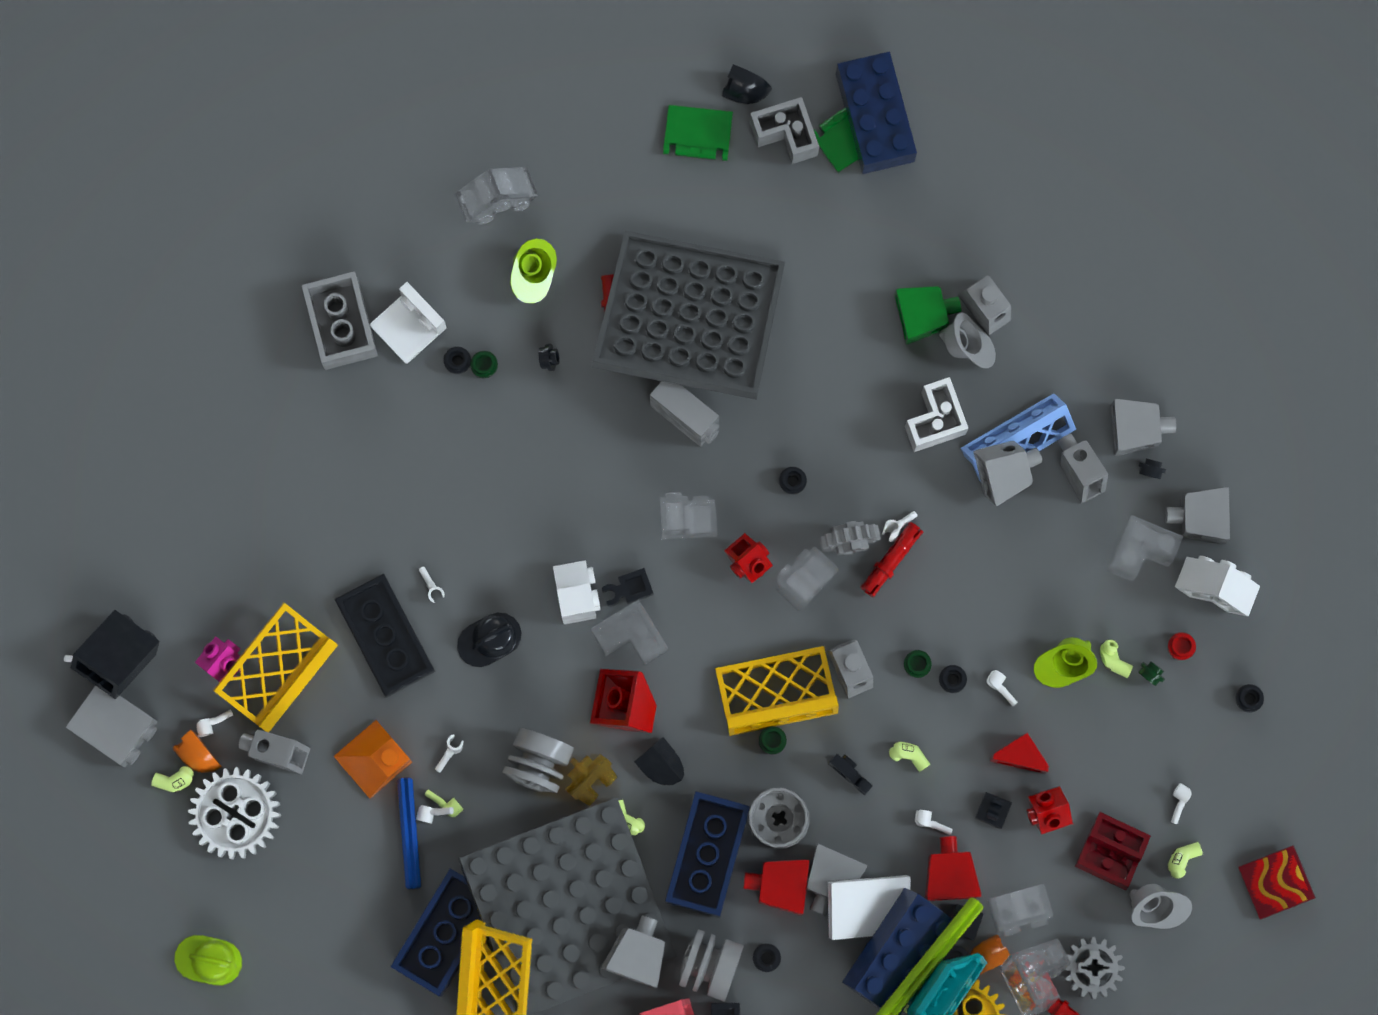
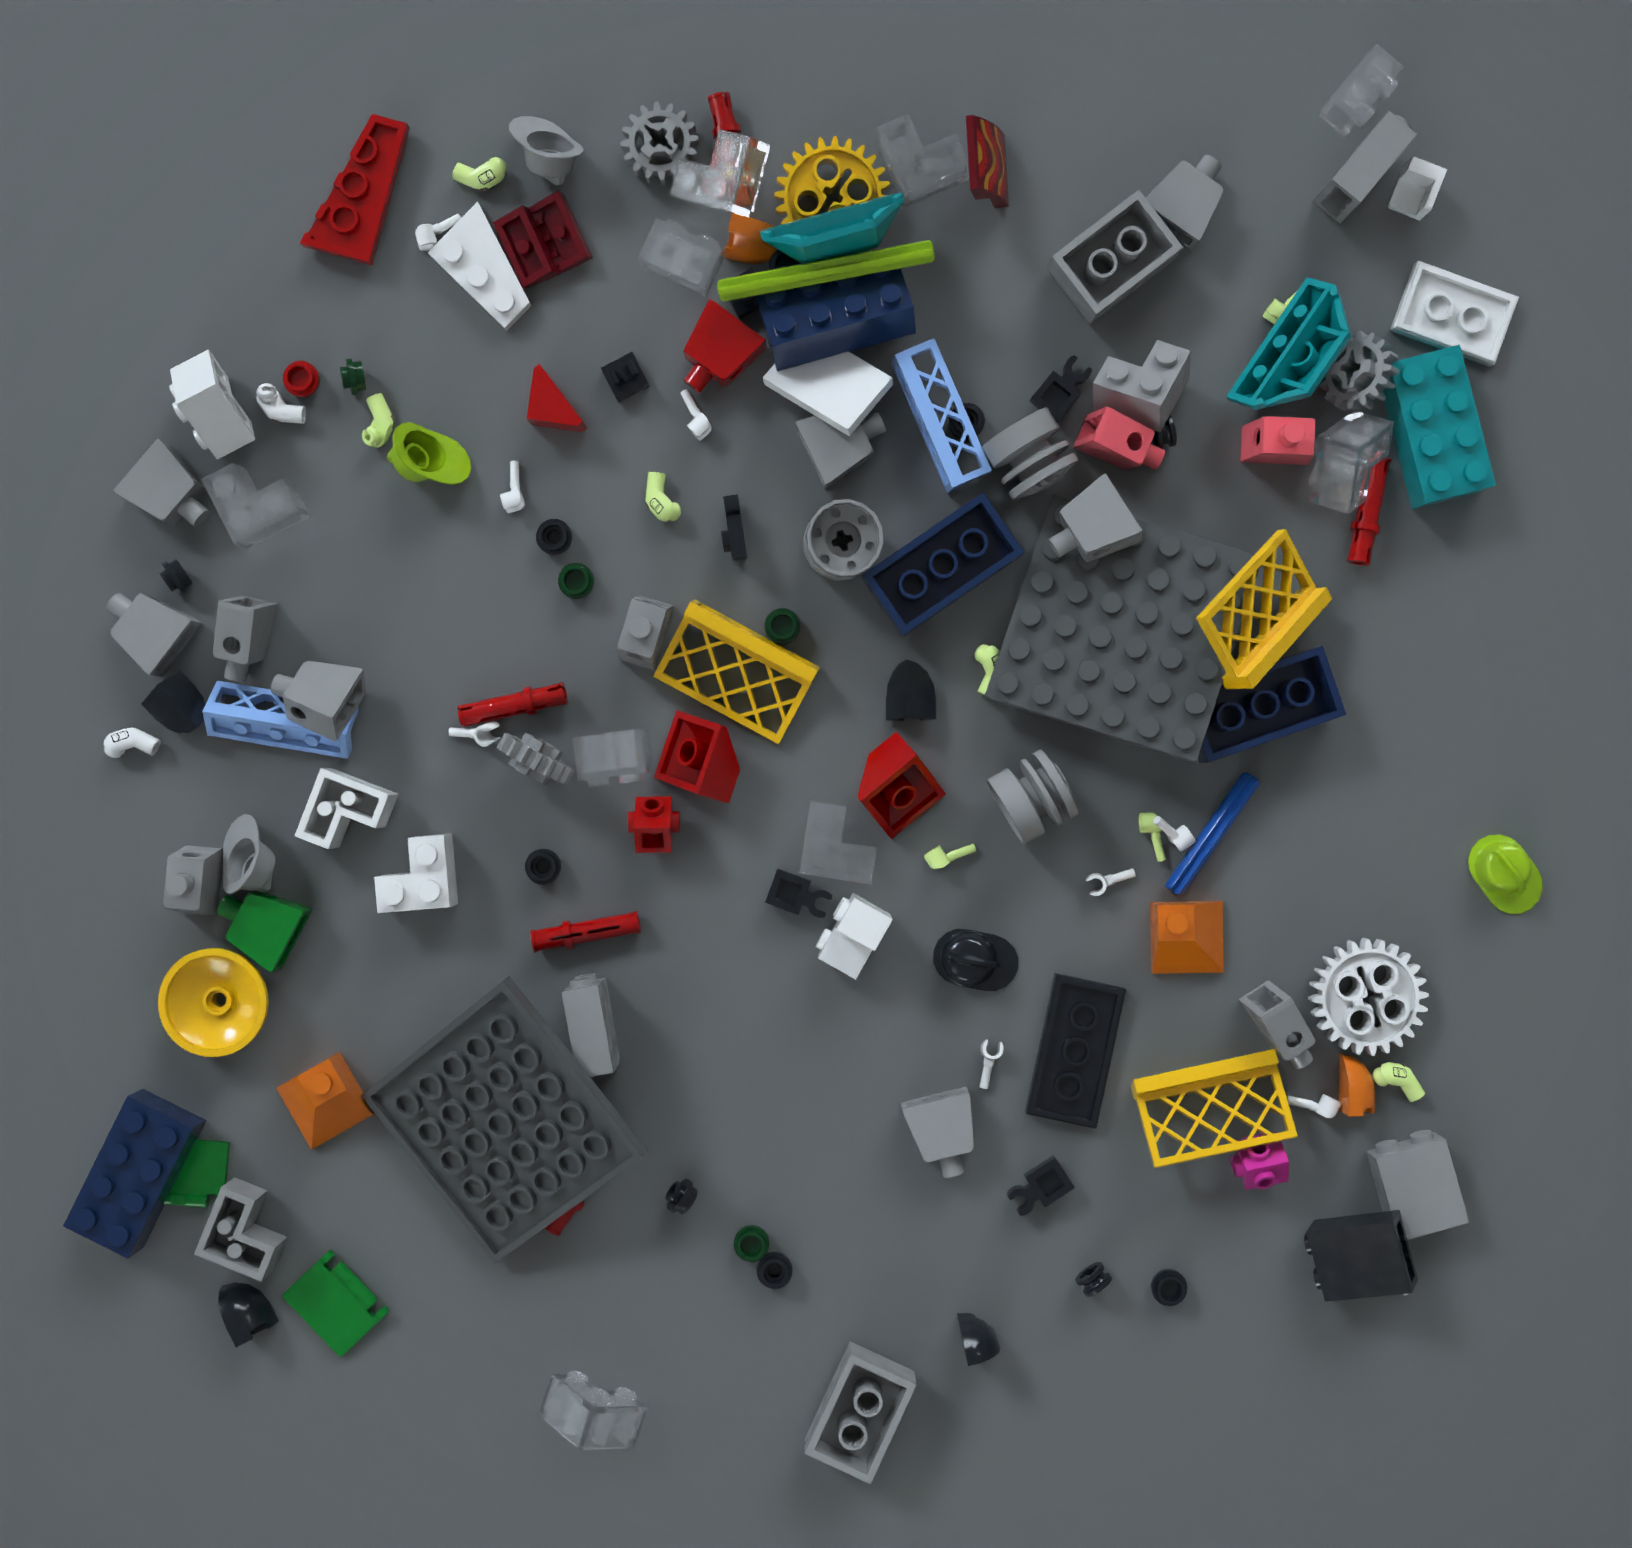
camera: 140 degrees left, 10 degrees up
(212, 542) = (1169, 1287): none -> black plate
(263, 509) = (1093, 1279): none -> black bush
(305, 418) = (977, 1339): none -> black brick
(338, 542) = (1045, 1182): none -> black plate
(408, 324) = (793, 1348): white bracket -> none
(428, 523) = (942, 1128): none -> light grey torso
(533, 270) = (622, 1300): lime piece -> none
(561, 680) = (938, 859): none -> yellowish green hand
(584, 778) = (993, 744): clear yellow hips -> none
(687, 518) = (680, 915): clear brick -> none
(742, 455) = (543, 938): none -> red pin
(754, 619) = (699, 758): none -> red slope
(781, 884) = (893, 477): red torso -> none
(789, 936) = (928, 422): none -> light blue fence
(803, 241) = (325, 1100): none -> orange slope
(850, 414) = (430, 879): none -> white brick
(920, 228) = (191, 1007): none -> yellow dish
(1049, 810) = (570, 326): red brick -> none
(1085, 396) = (176, 704): none -> black brick
(1097, 353) = (130, 737): none -> white arm
(1136, 803) = (481, 268): none -> white wing
(1180, 616) = (276, 408): none -> white arm
(1240, 781) = (358, 204): none -> red wing
(1255, 692) = (270, 267): black plate -> none
(1277, 882) = (409, 74): slope -> none

